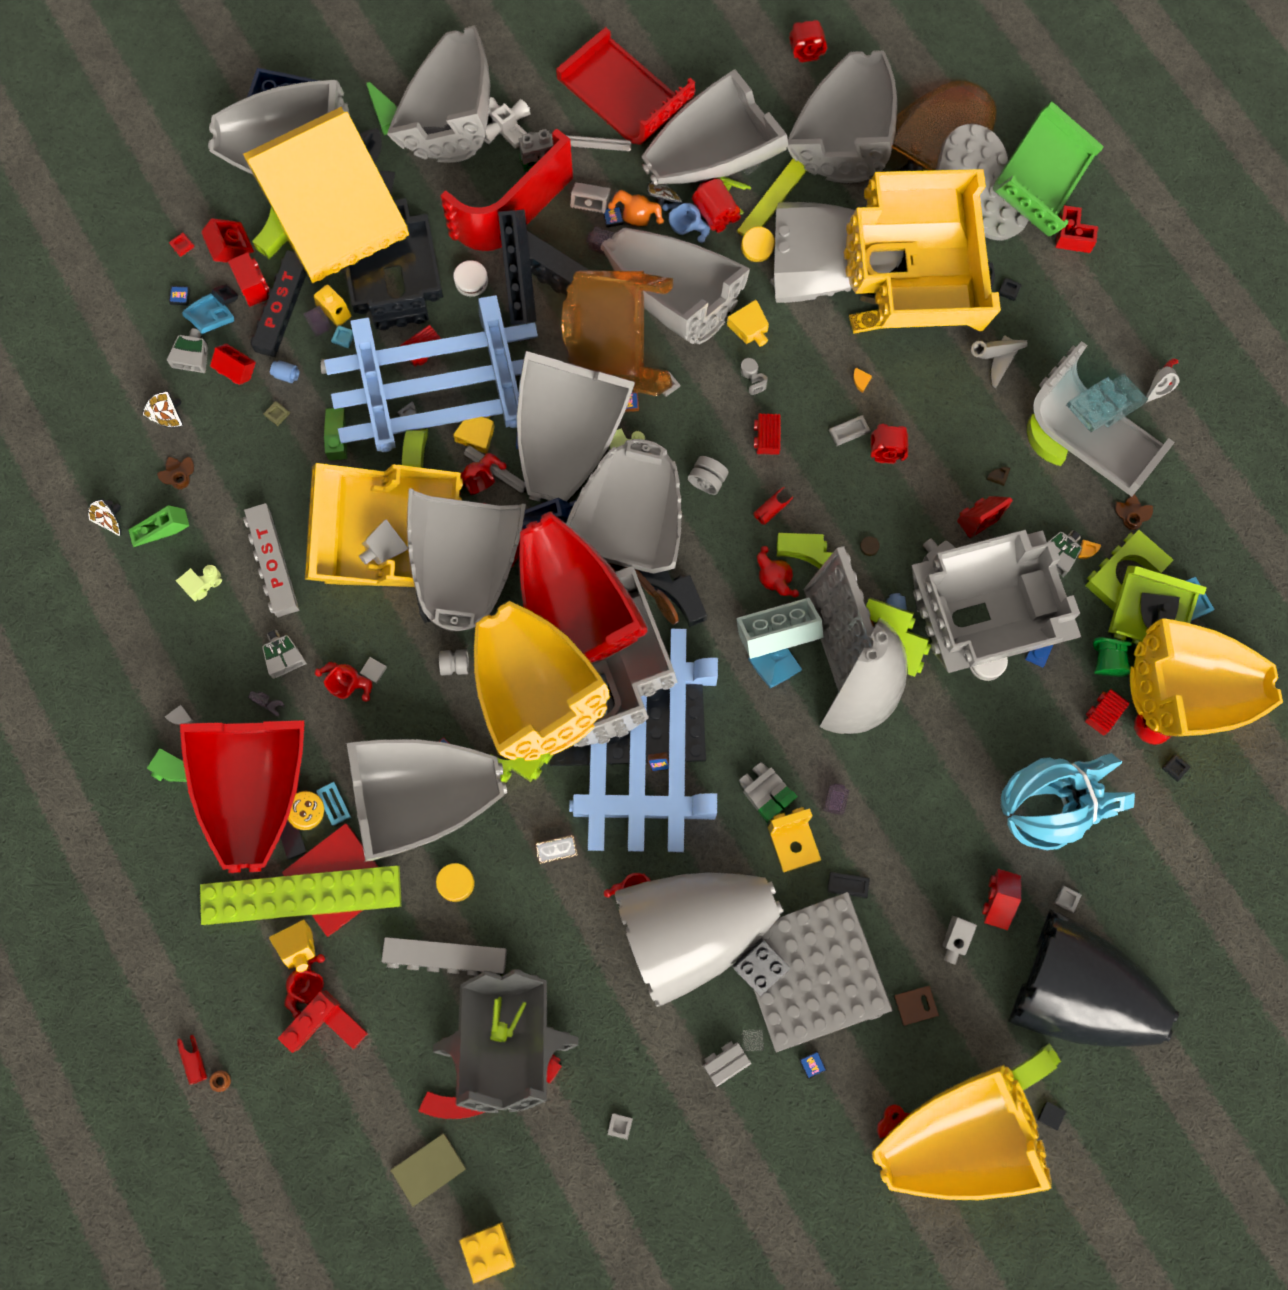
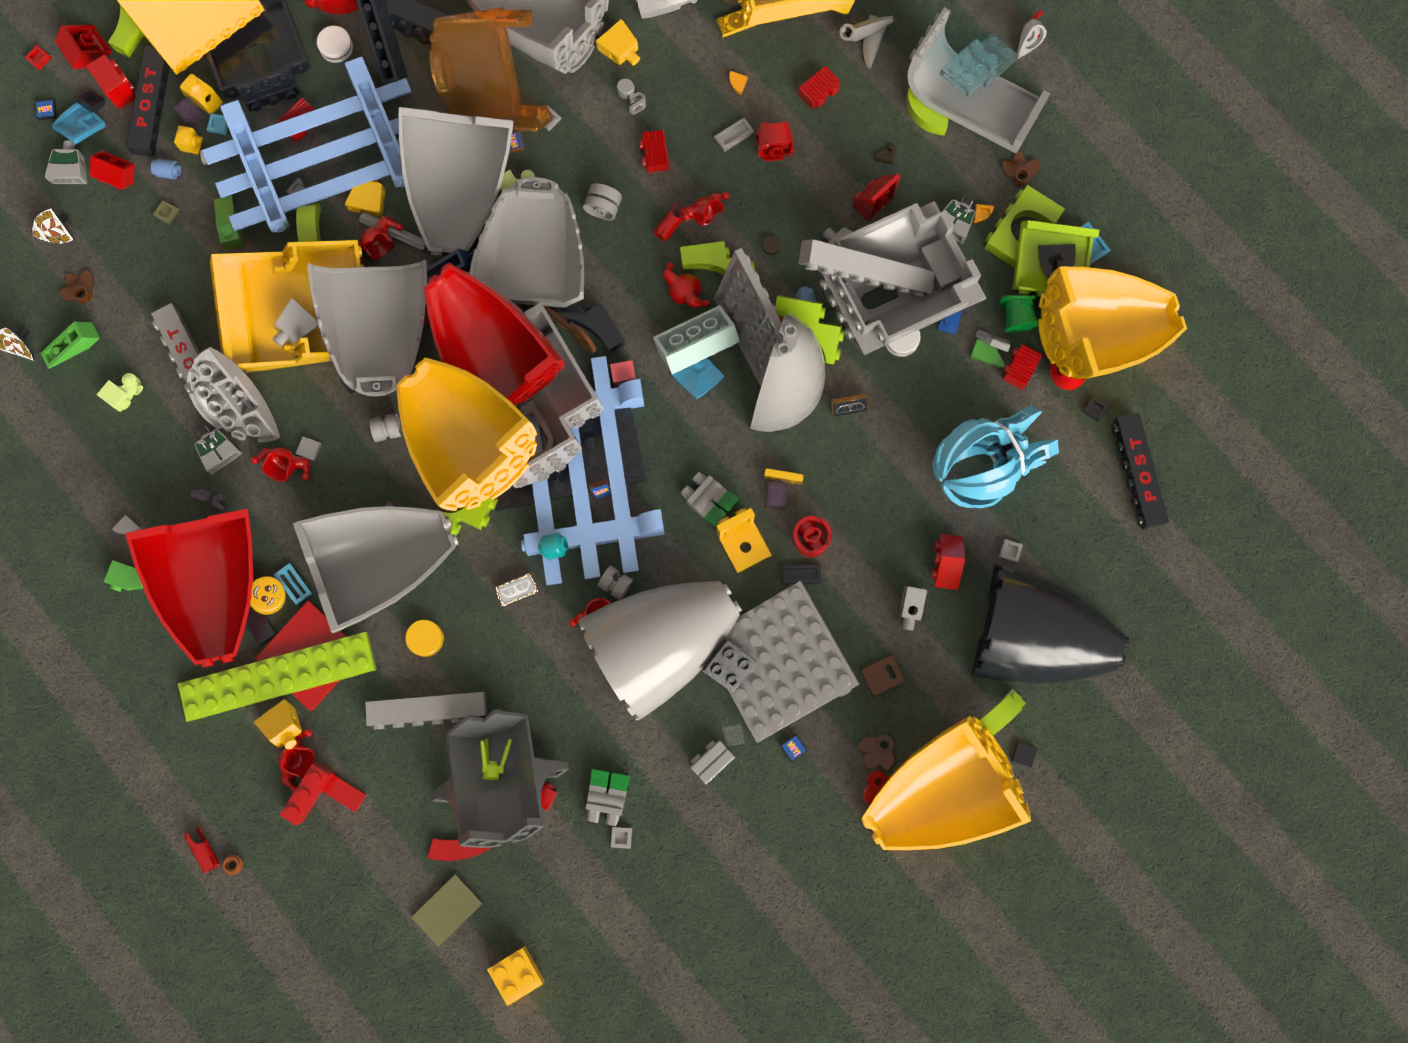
camera: 10 degrees left, 5 degrees up
(305, 607) = (229, 398): none -> light grey brick
(311, 347) = (188, 140): none -> yellow brick
(602, 812) = (553, 546): none -> teal head
(612, 1086) = (606, 802): none -> light grey hips
(657, 860) = (615, 582): none -> light grey wheel
(700, 648) = (622, 372): none -> coral panel
(808, 499) = (704, 208): none -> red piece
(848, 782) = (788, 477): none -> yellow tile
(865, 848) = (811, 536): none -> red brick
(896, 1087) = (875, 754): none -> reddish brown plate
(924, 720) = (849, 404): none -> slope
(942, 398) = (819, 87): none -> red brick
(964, 586) = (866, 267): none -> light grey brick
(1072, 692) = (987, 354): none -> bright green tile
(1081, 680) = (993, 340): none -> light grey tile
(1214, 840) = (1140, 471): none -> black brick

